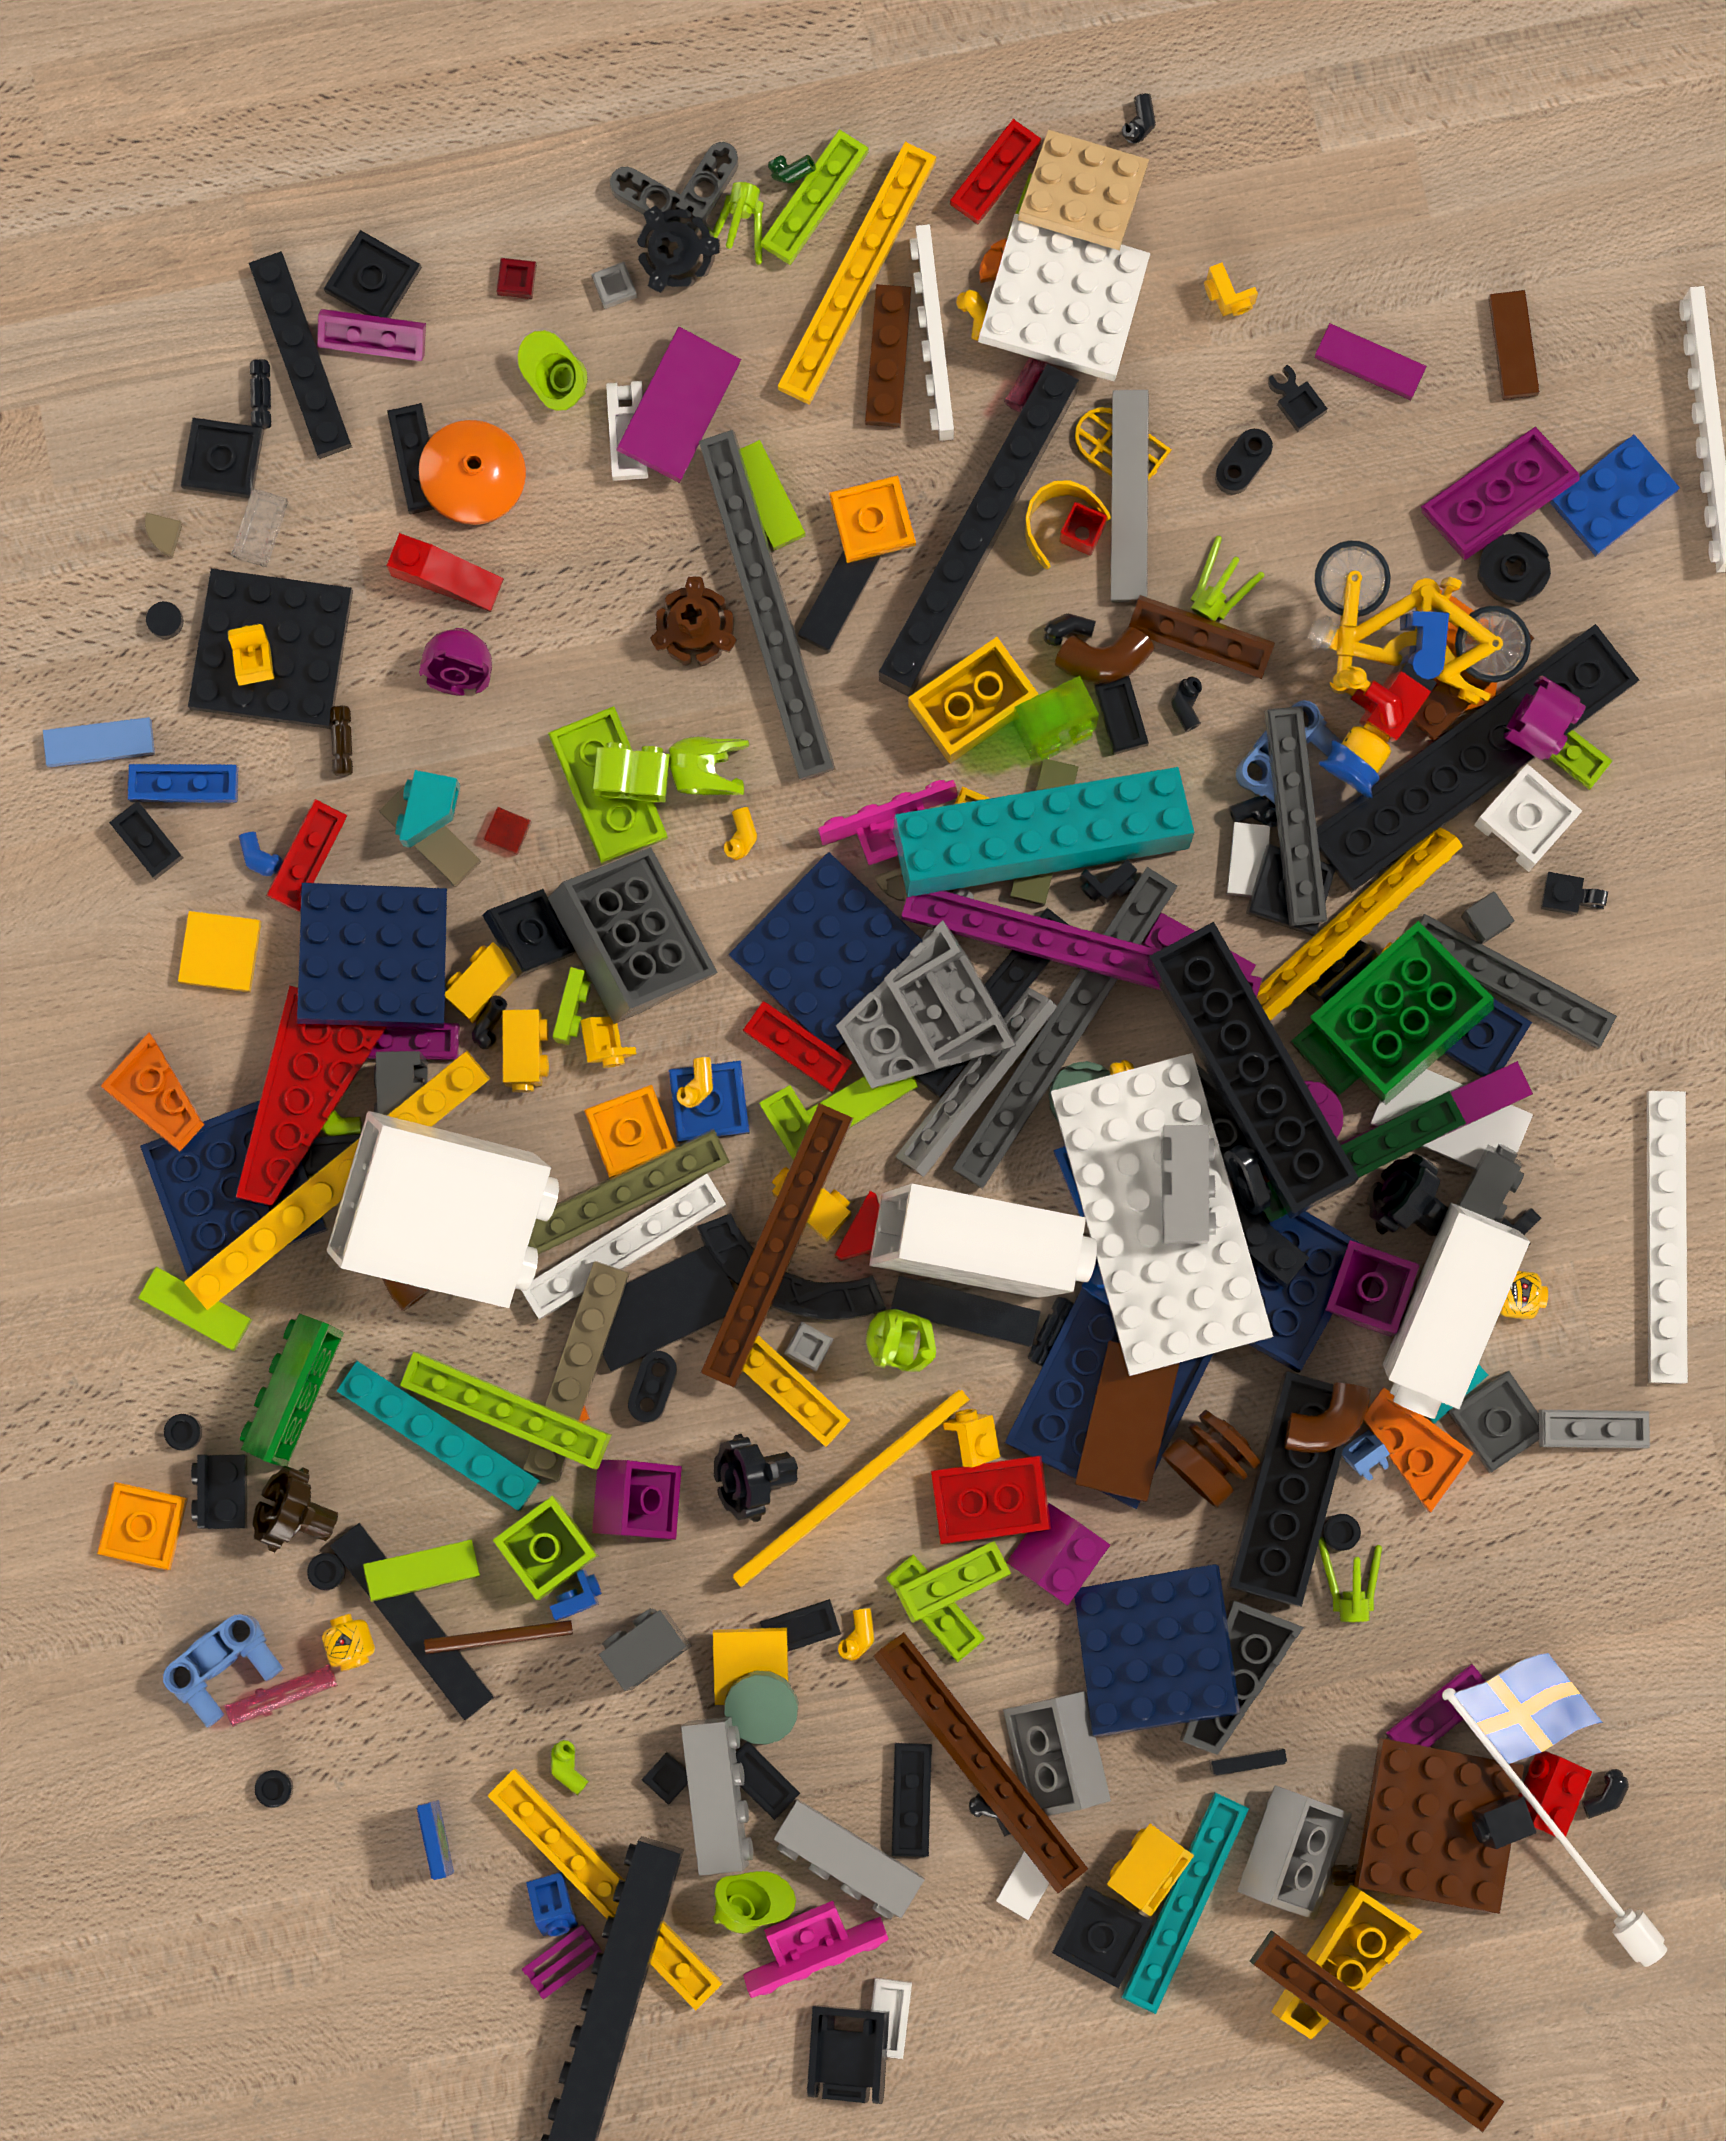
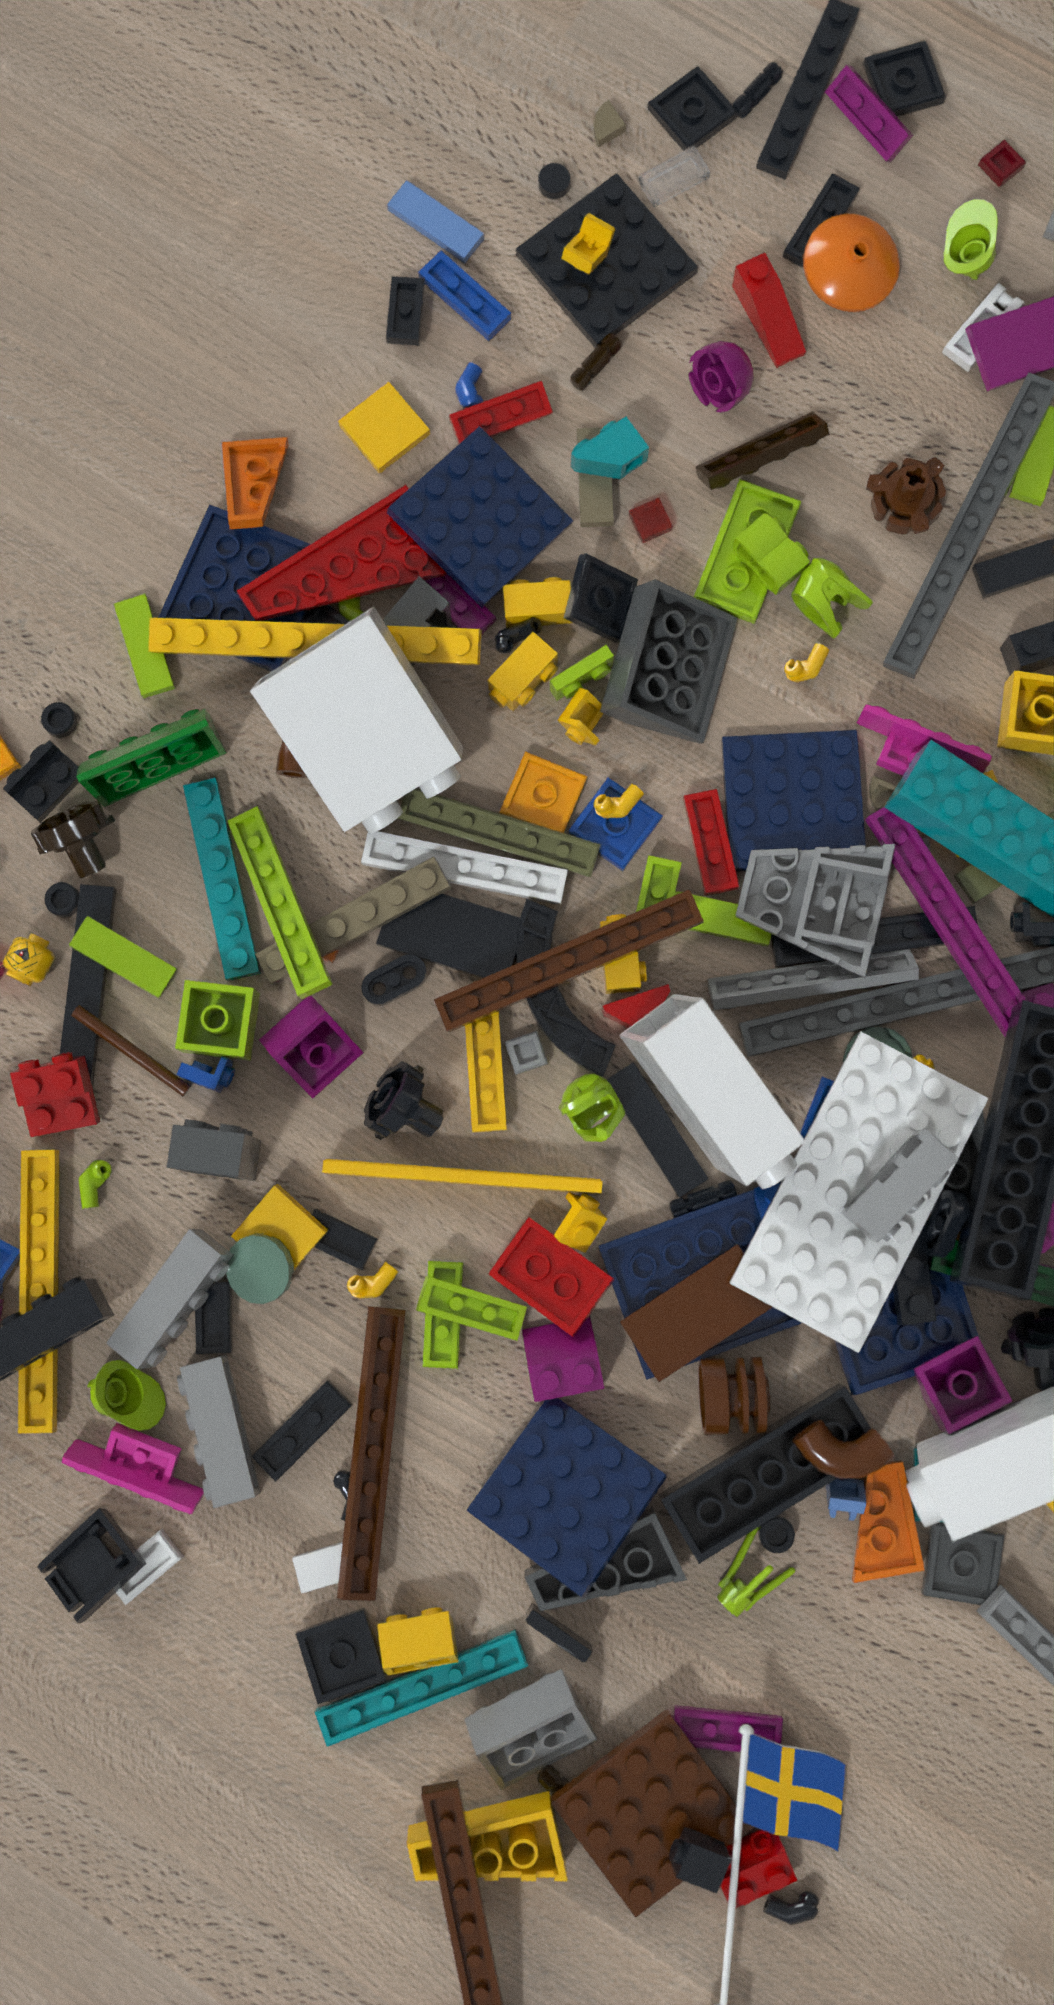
camera: 45 degrees right, 0 degrees up
(472, 1726) = (55, 1094): none -> red plate
(545, 694) = (762, 450): none -> dark brown plate
(666, 1778) = (151, 1254): black tile -> none
(1057, 1753) = (431, 1498): light grey slope -> none

